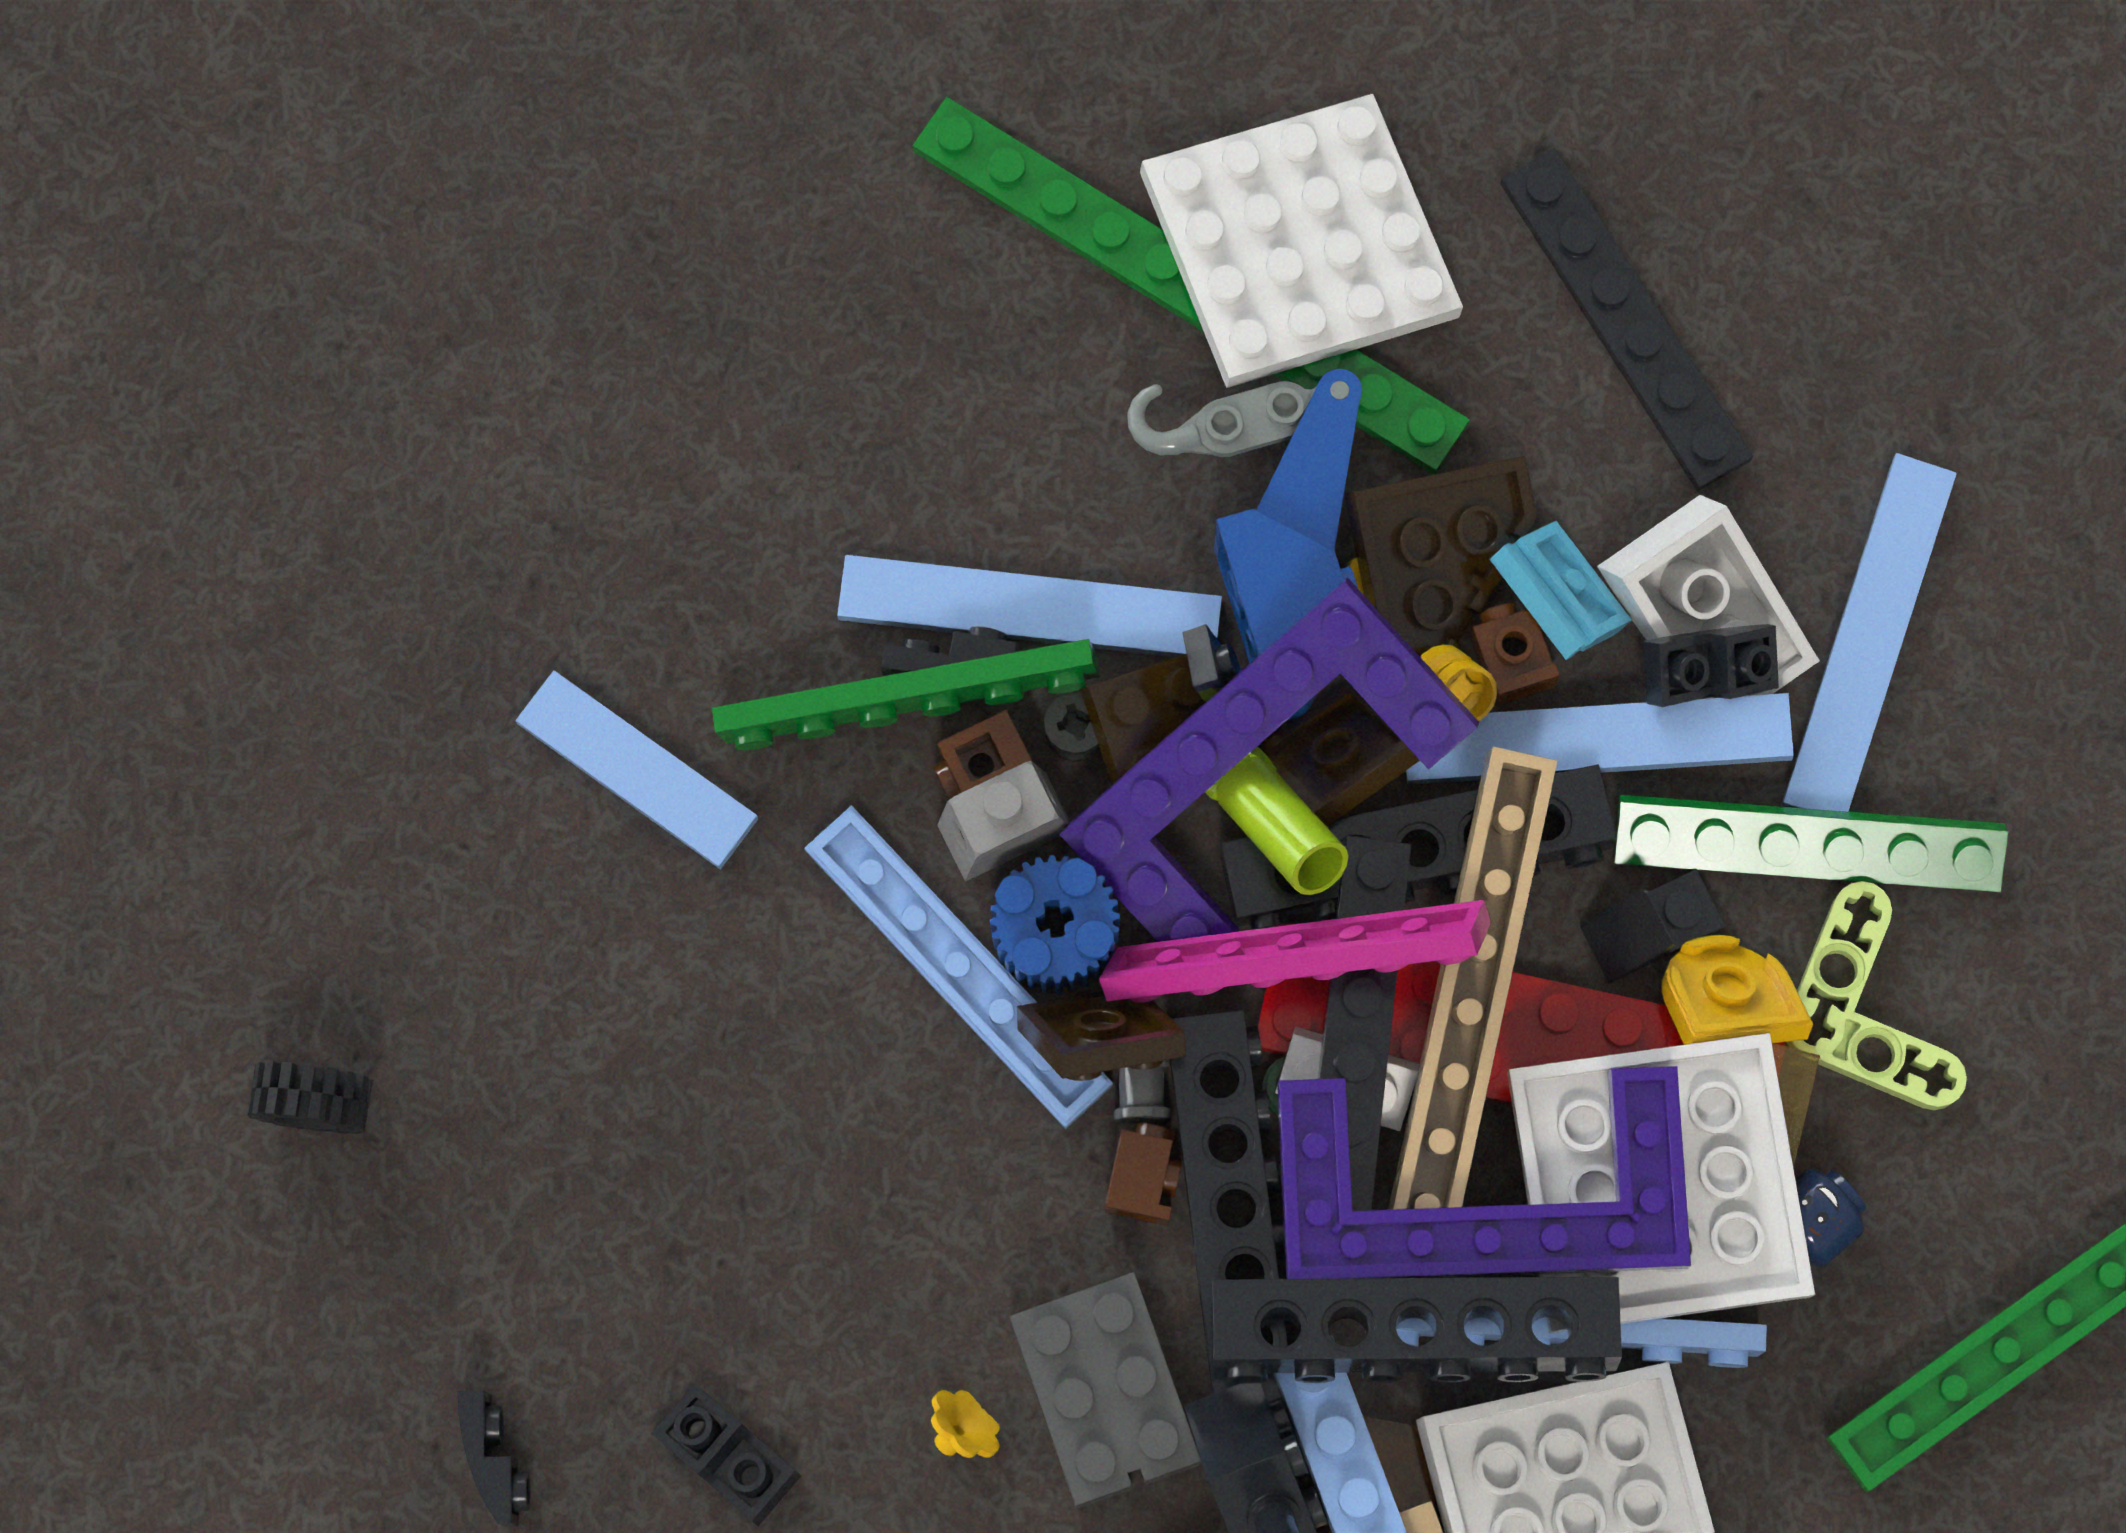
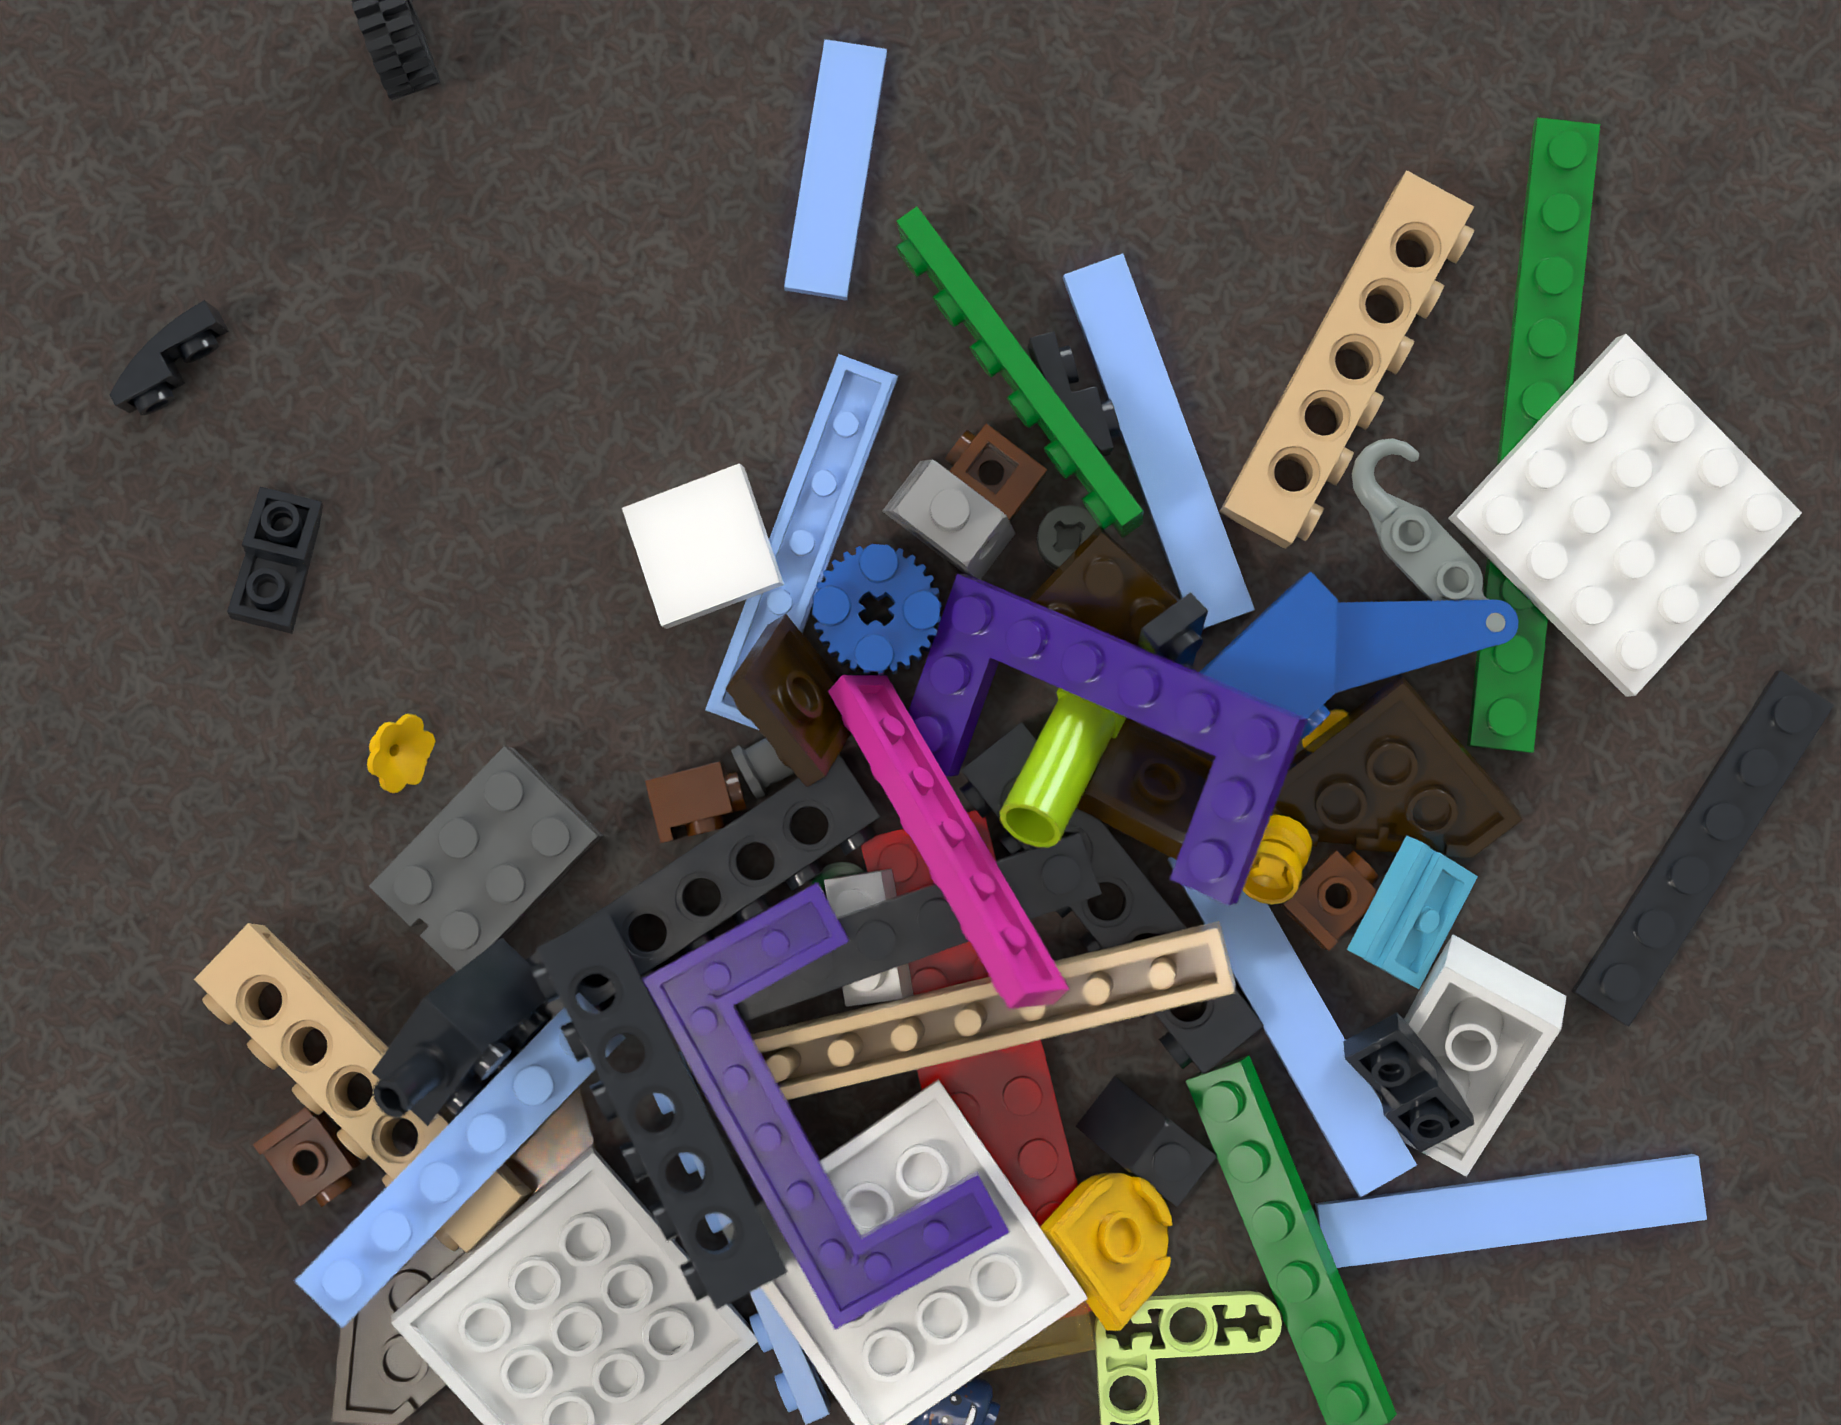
camera: 60 degrees right, 10 degrees up
(916, 1054) = (702, 546): none -> white tile
(966, 273) = (1413, 213): none -> tan brick

